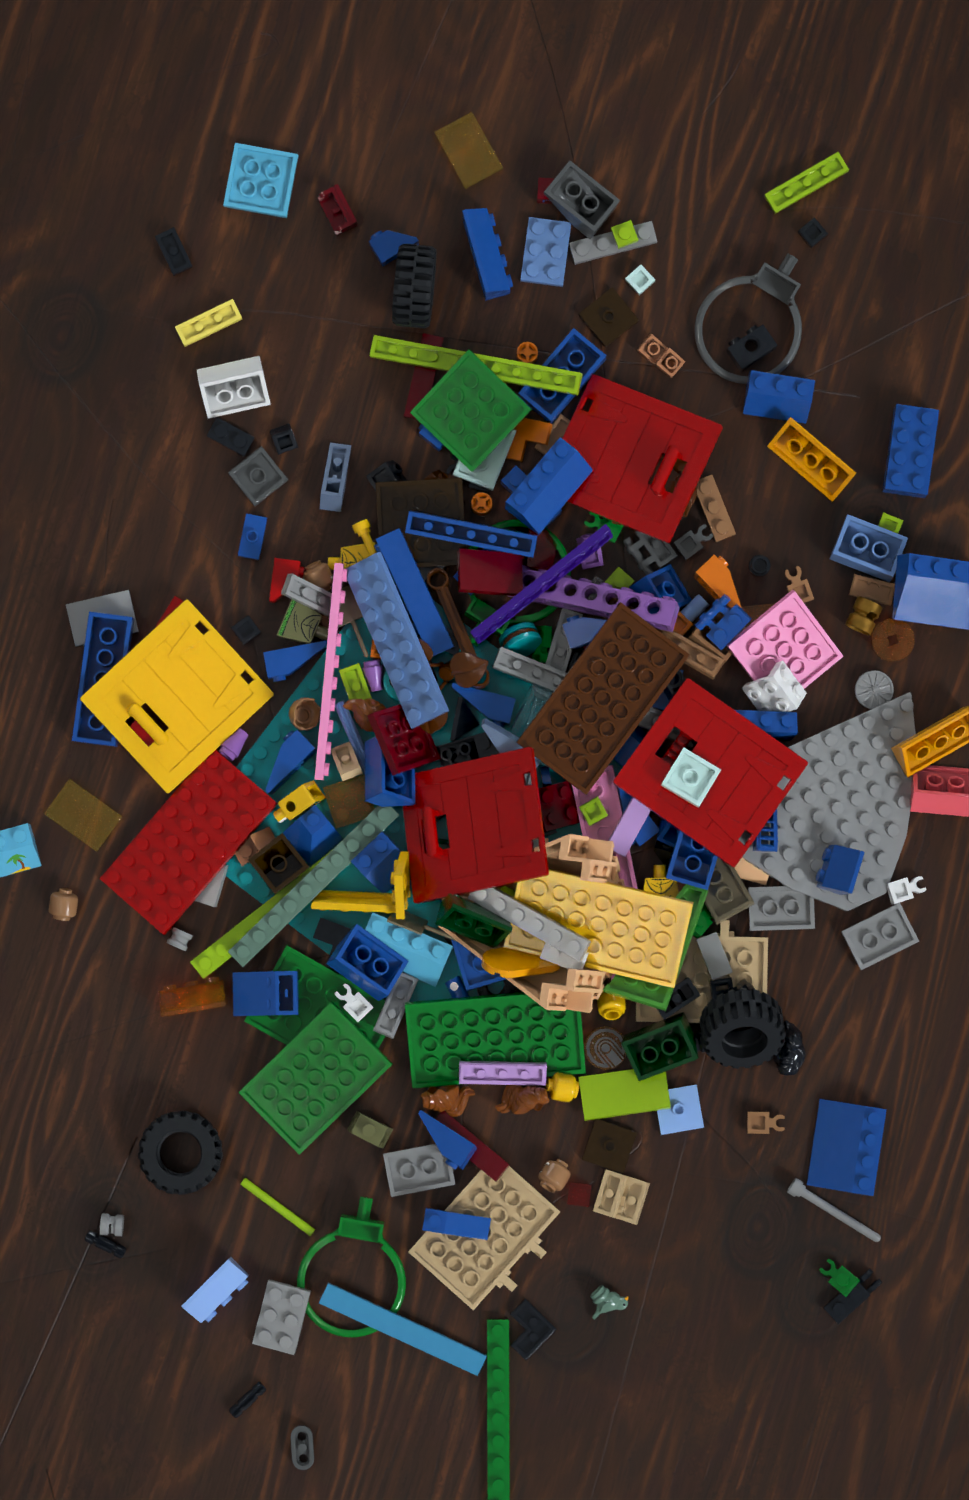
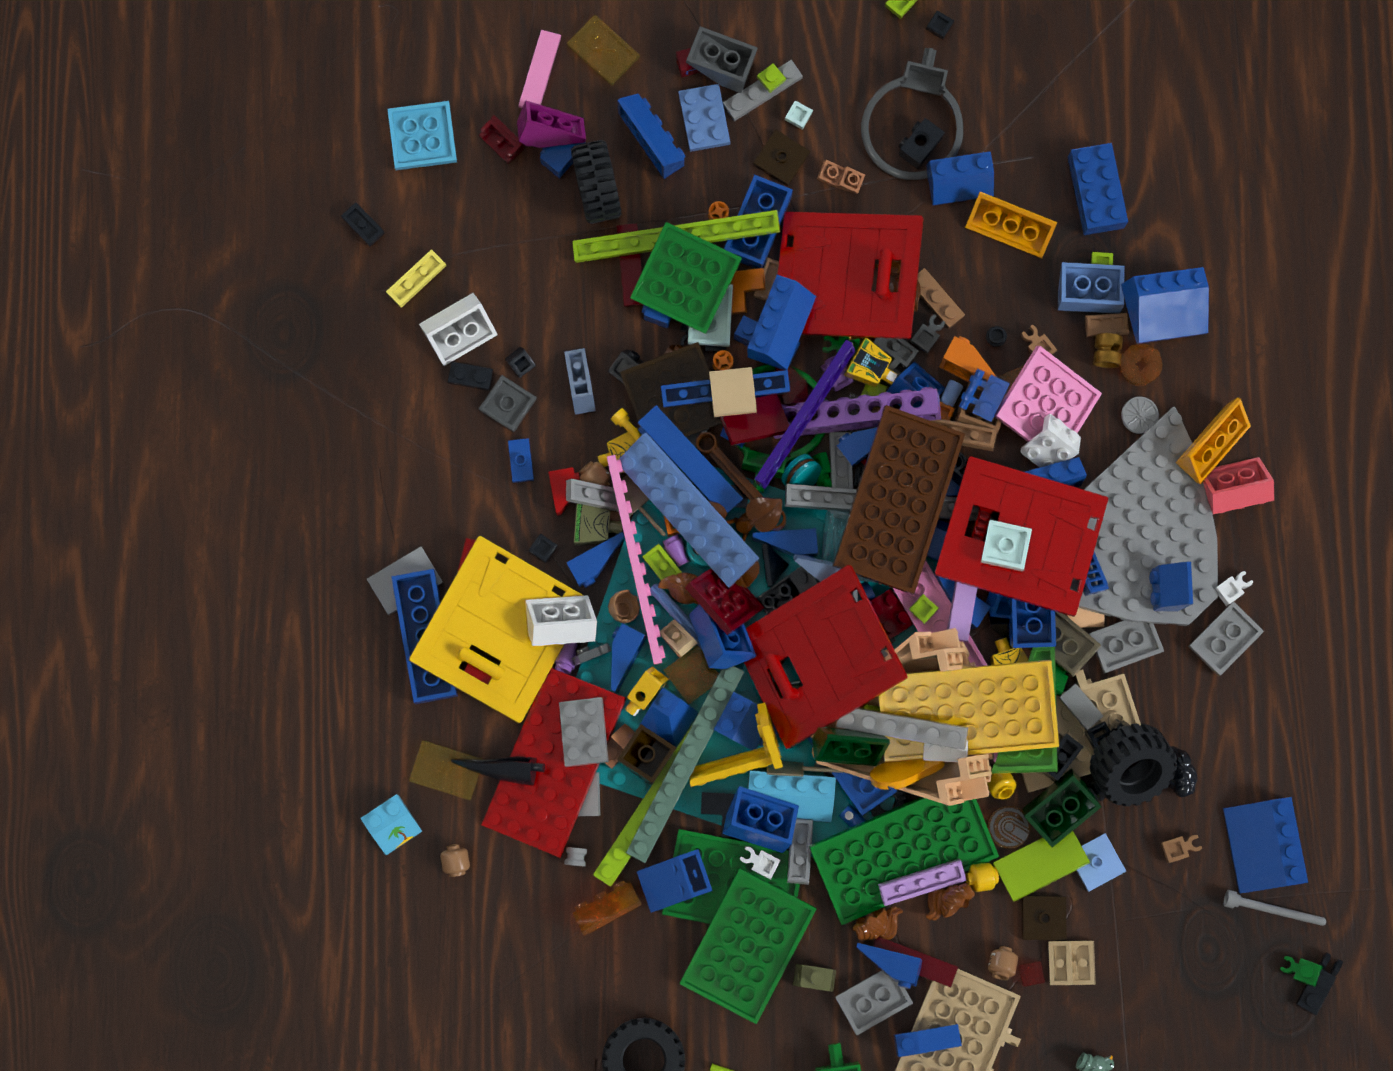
camera: 20 degrees left, 5 degrees down
(145, 835) = (510, 769): none -> black piece
(225, 822) = (583, 732): none -> light grey plate
(239, 707) = (560, 620): none -> white slope
(252, 748) = (586, 654): none -> dark grey plate
(387, 213) = (548, 127): none -> magenta slope
(398, 152) = (540, 68): none -> bright pink tile
(476, 540) = (733, 392): none -> tan slope
(623, 555) = (870, 365): none -> torso

